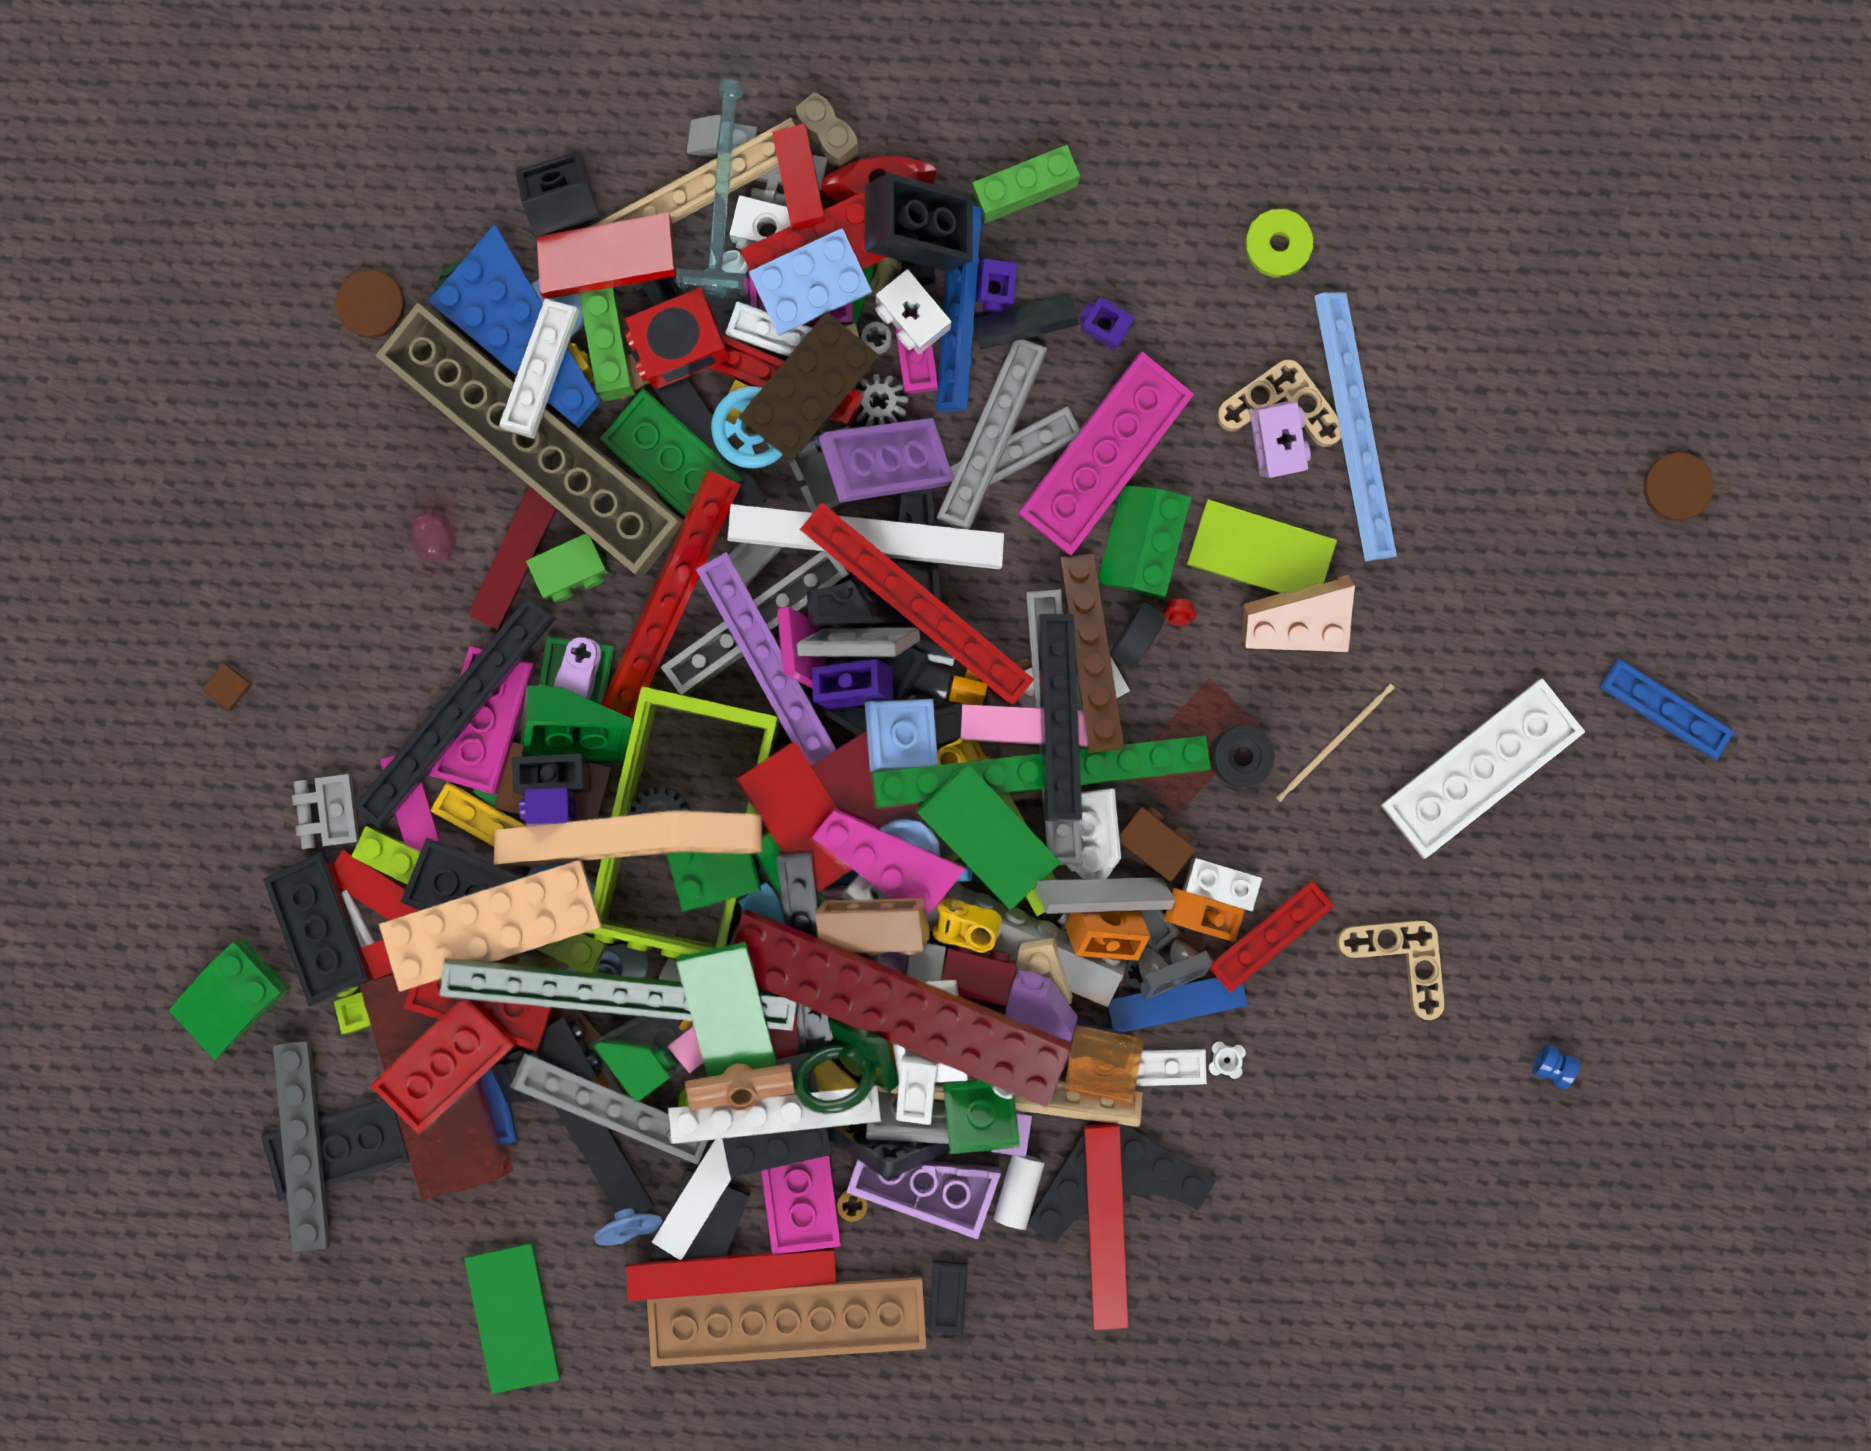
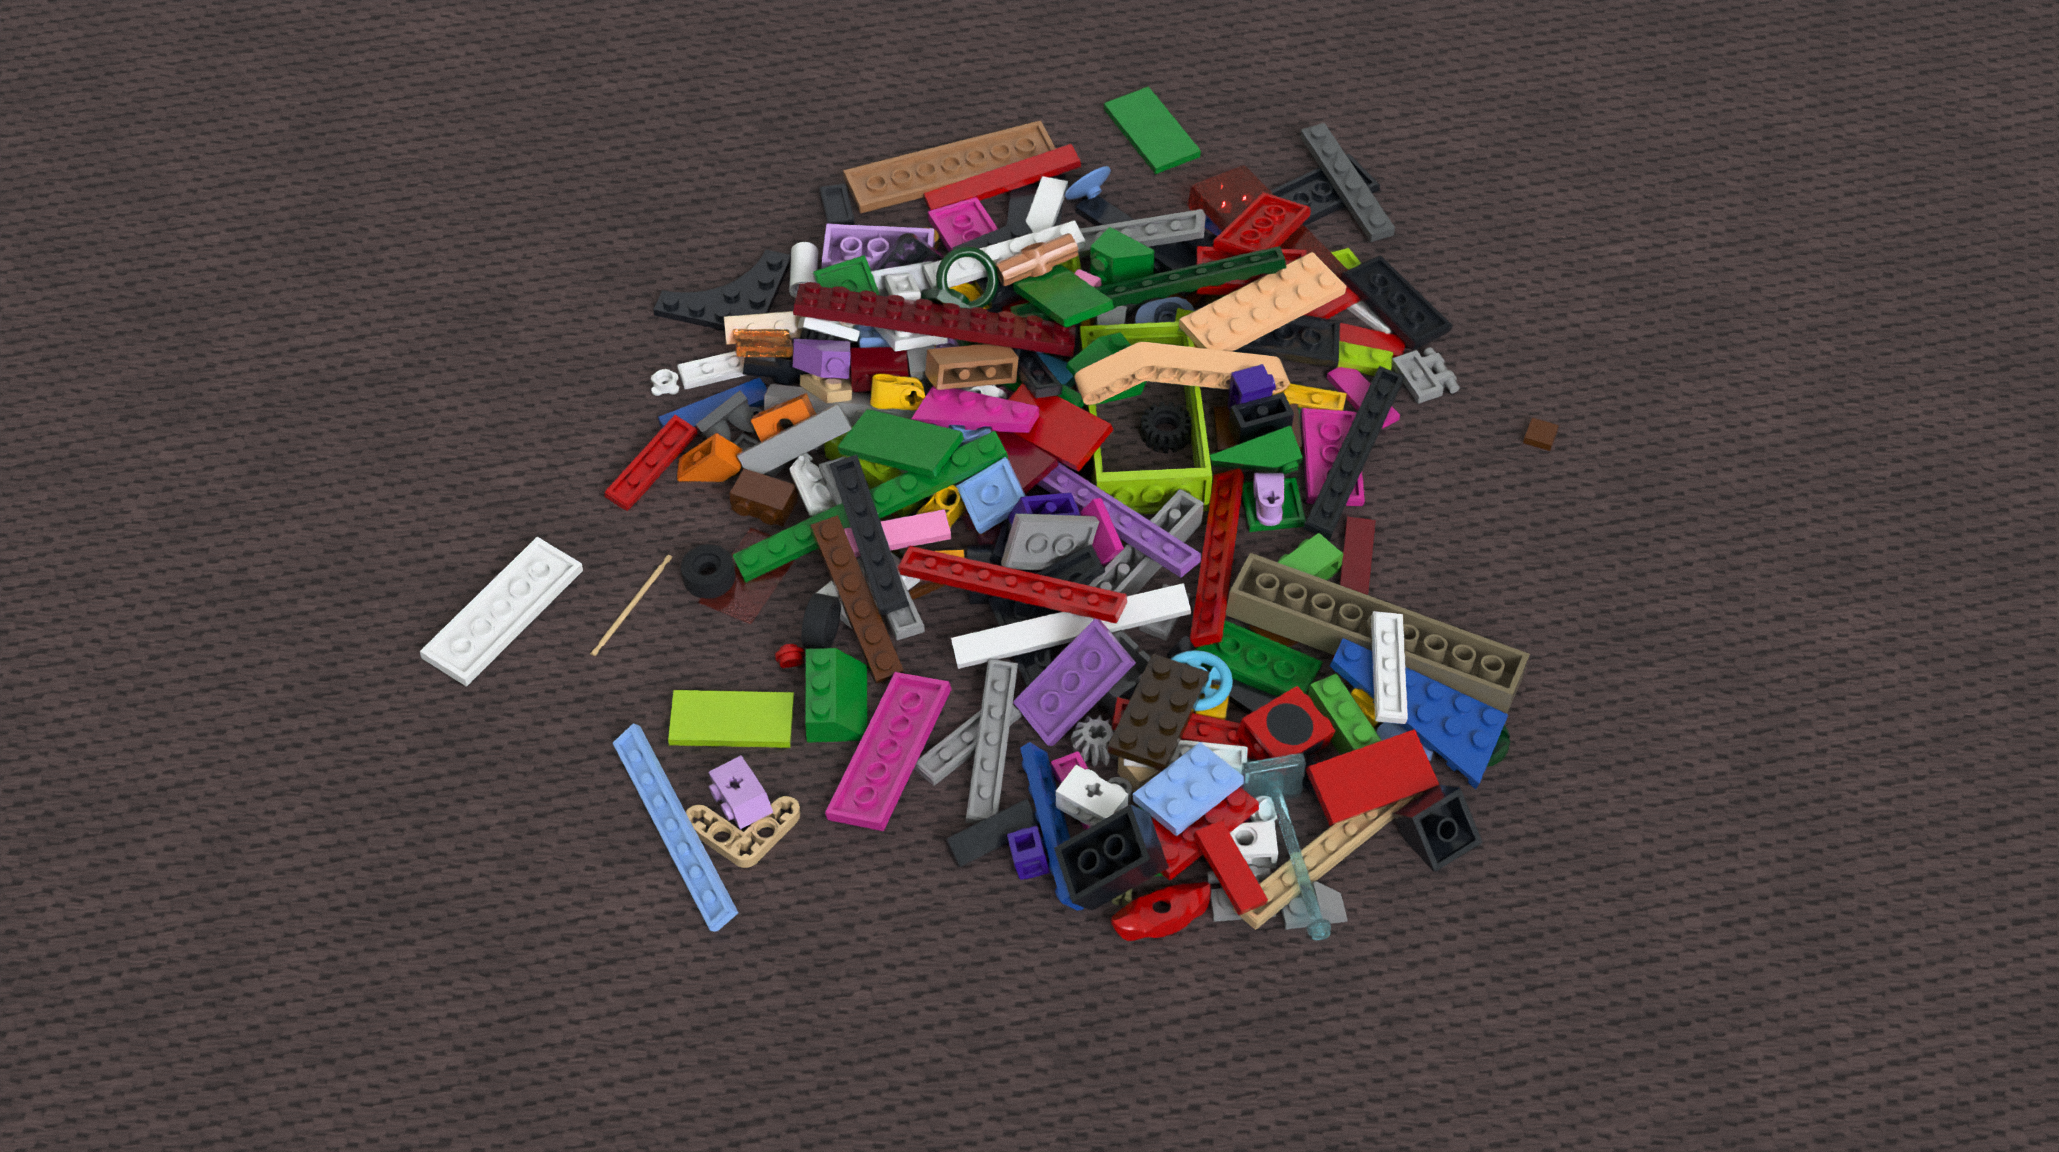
camera: 160 degrees right, 35 degrees down
(228, 998) = (1439, 254): green slope -> none
(370, 303) = (1557, 712): reddish brown tile -> none
(431, 536) = (1428, 560): clear pink head -> none
(832, 134) = (1227, 933): dark tan brick -> none
(948, 723) = (959, 539): black tile -> none
(1025, 184) = (1028, 934): bright green brick -> none
(1106, 1226) = (731, 263): tile -> none
(1119, 321) = (919, 845): dark purple brick -> none
(1221, 884) = (701, 482): white brick -> none
(1282, 223) = (777, 939): lime tile -> none
(1303, 619) = (686, 664): wedge -> none
(1414, 954) = (532, 482): tan beam -> none
(1555, 1066) = (398, 432): blue wheel -> none
(1666, 709) = (350, 691): blue tile -> none
(1678, 486) = (369, 855): reddish brown tile -> none

